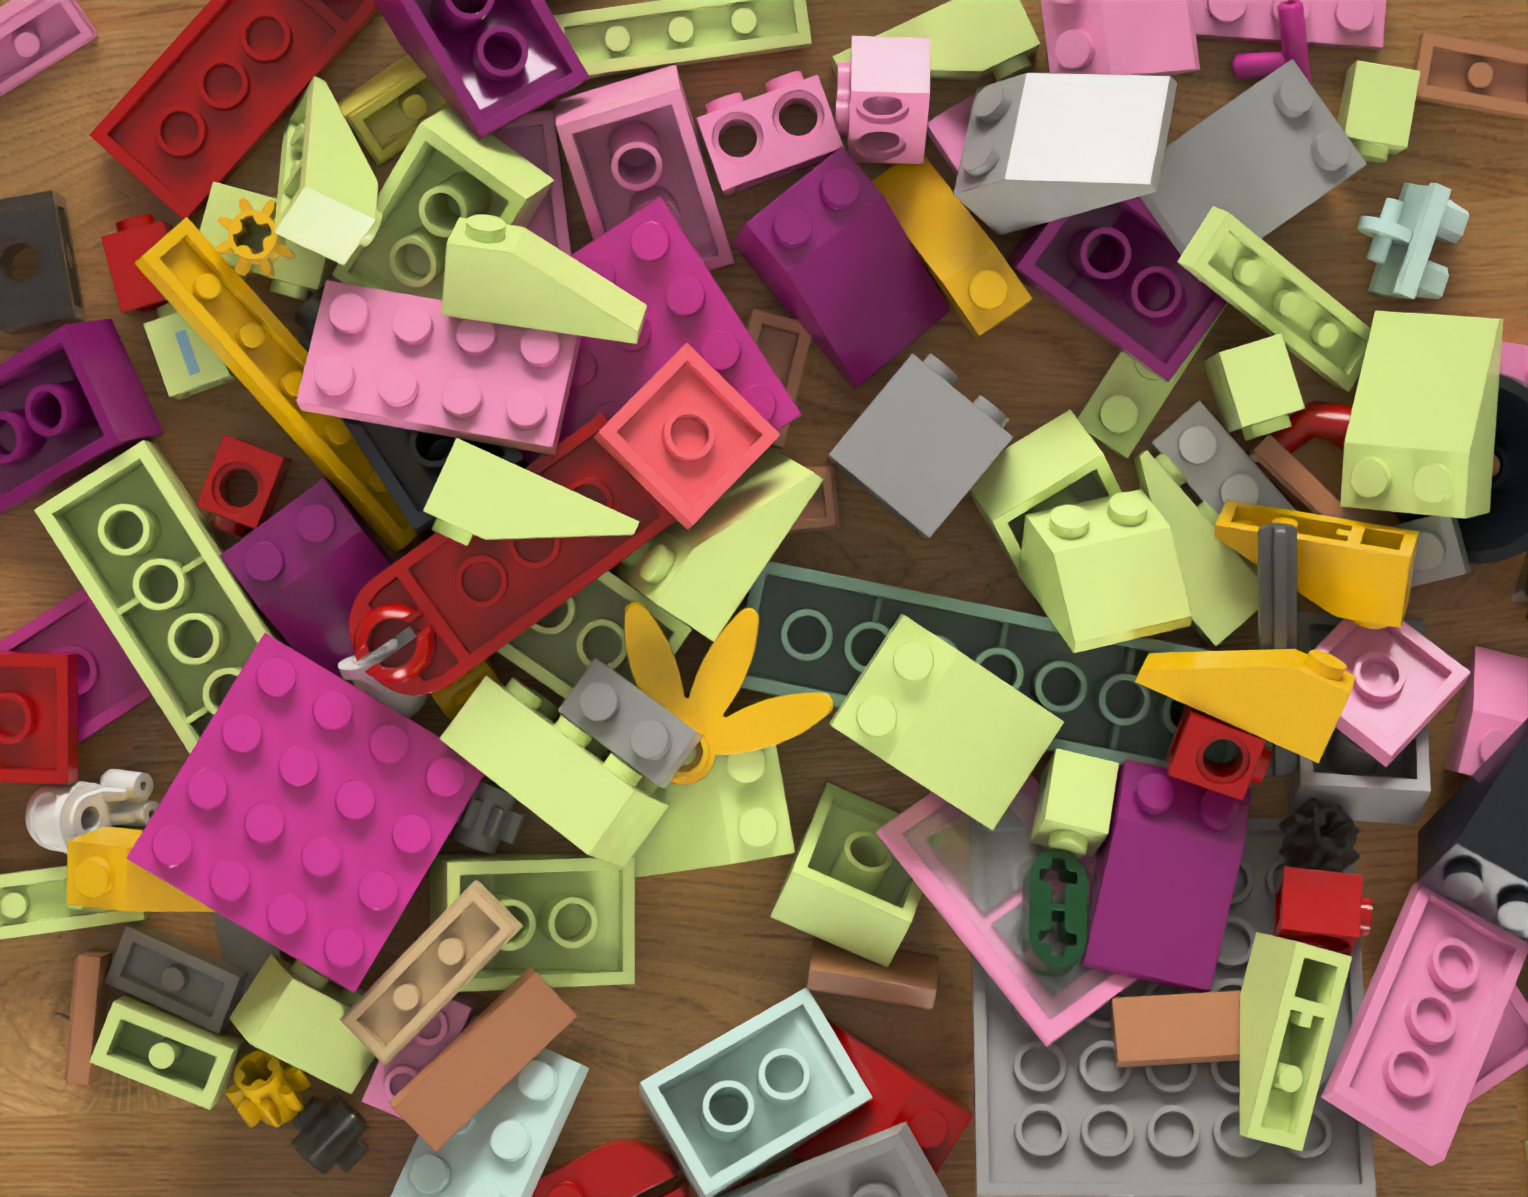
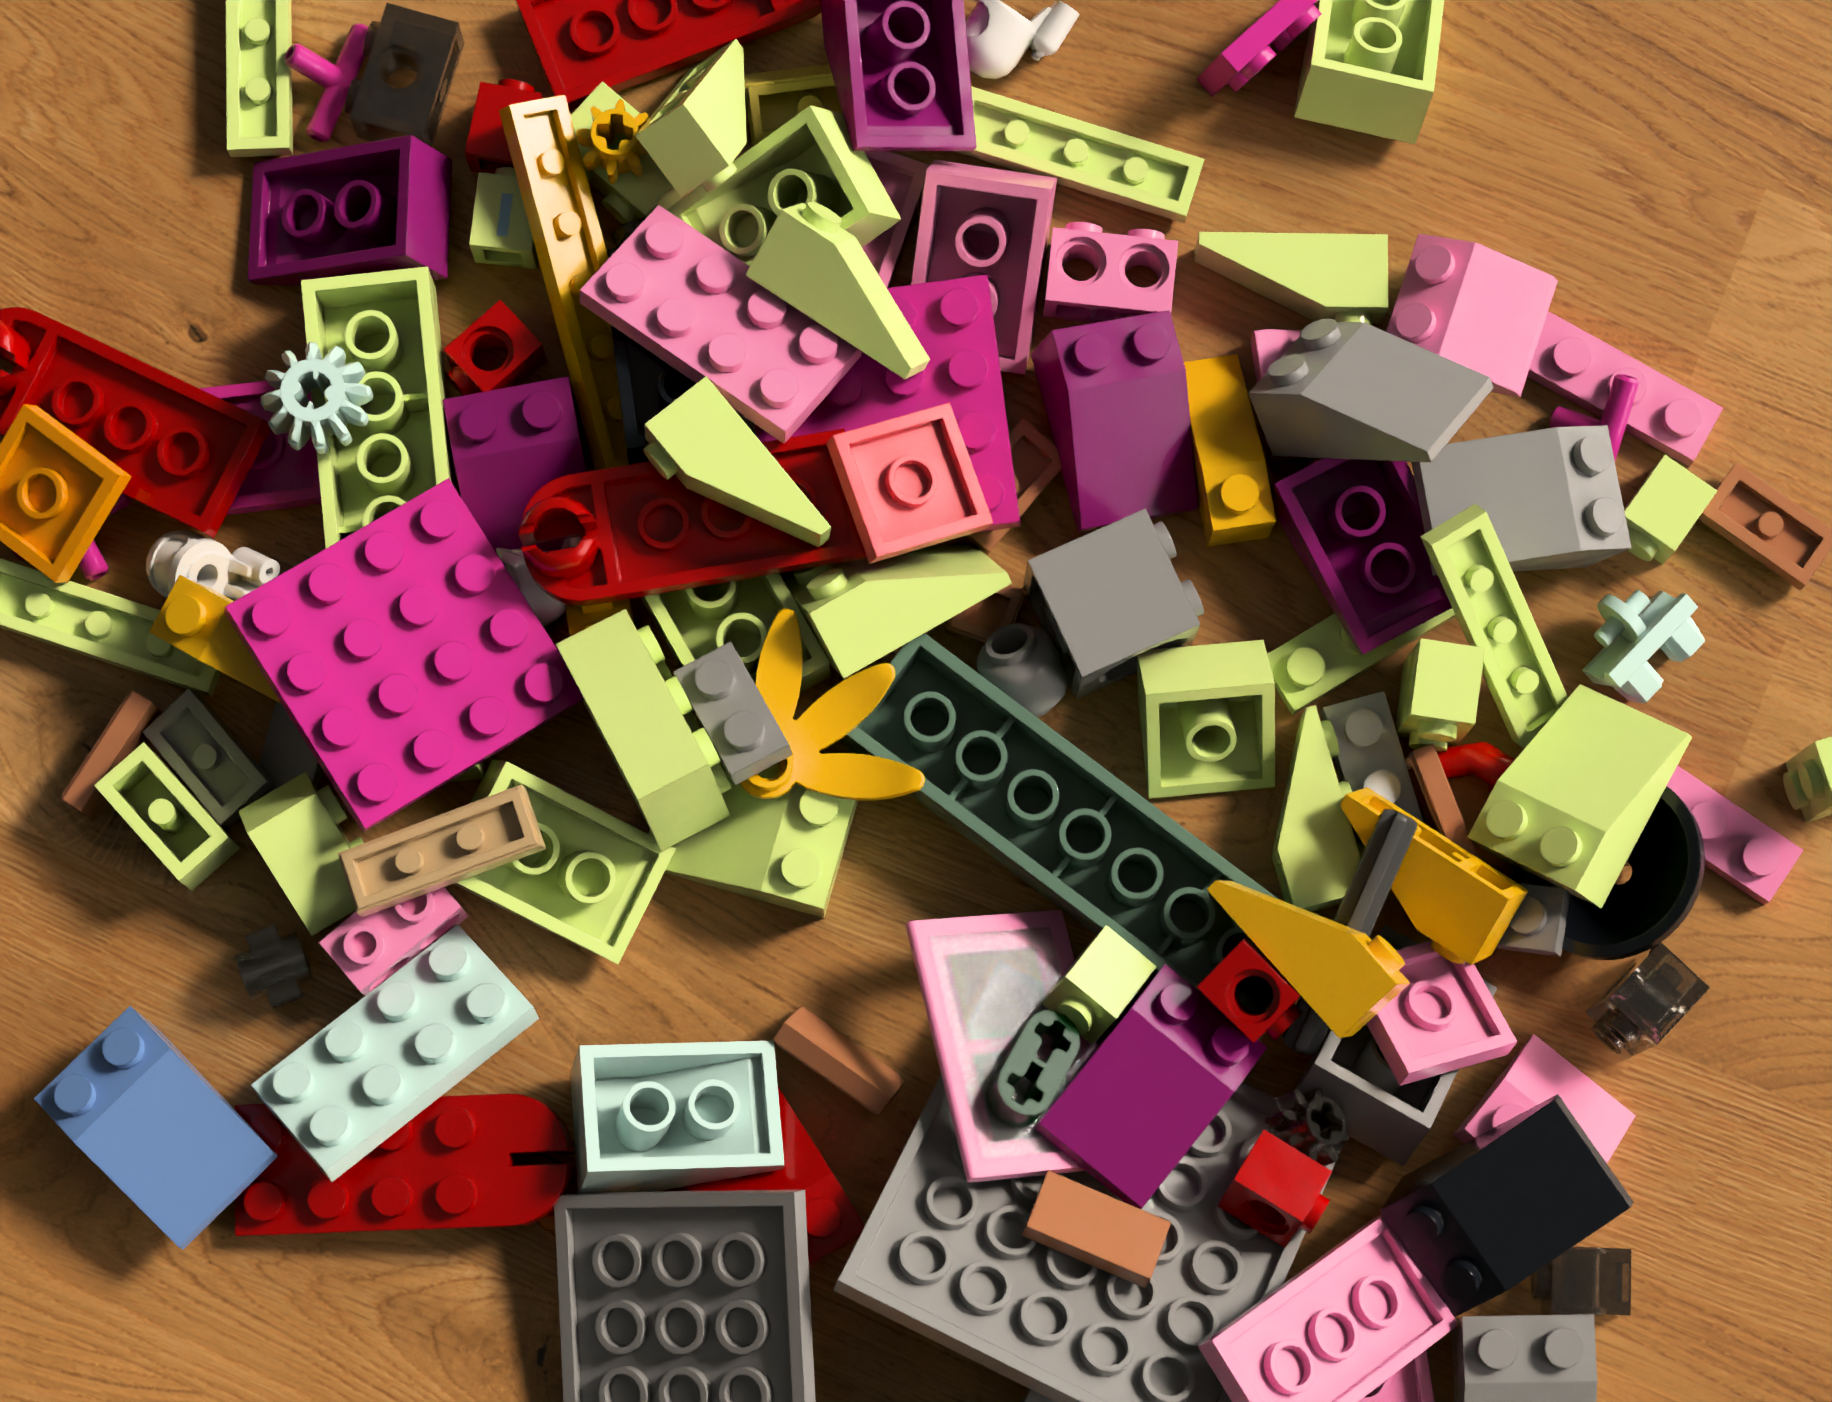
camera: 20 degrees right, 10 degrees down
(86, 625) = (298, 414): none -> light aqua gear
(267, 1089) = (239, 896): yellow gear -> none
(482, 1059) = (448, 954): nougat tile -> none
(488, 819) = (561, 750): light grey gear -> none
(848, 881) = (857, 965): yellowish green slope -> none
(867, 543) = (1025, 666): none -> light grey head
(884, 99) = (1227, 289): bright pink brick -> none
(946, 722) = (1017, 848): yellowish green slope -> none
(1105, 570) = (1226, 788): yellowish green slope -> none
(1285, 1035) = (1193, 1274): yellowish green slope -> none

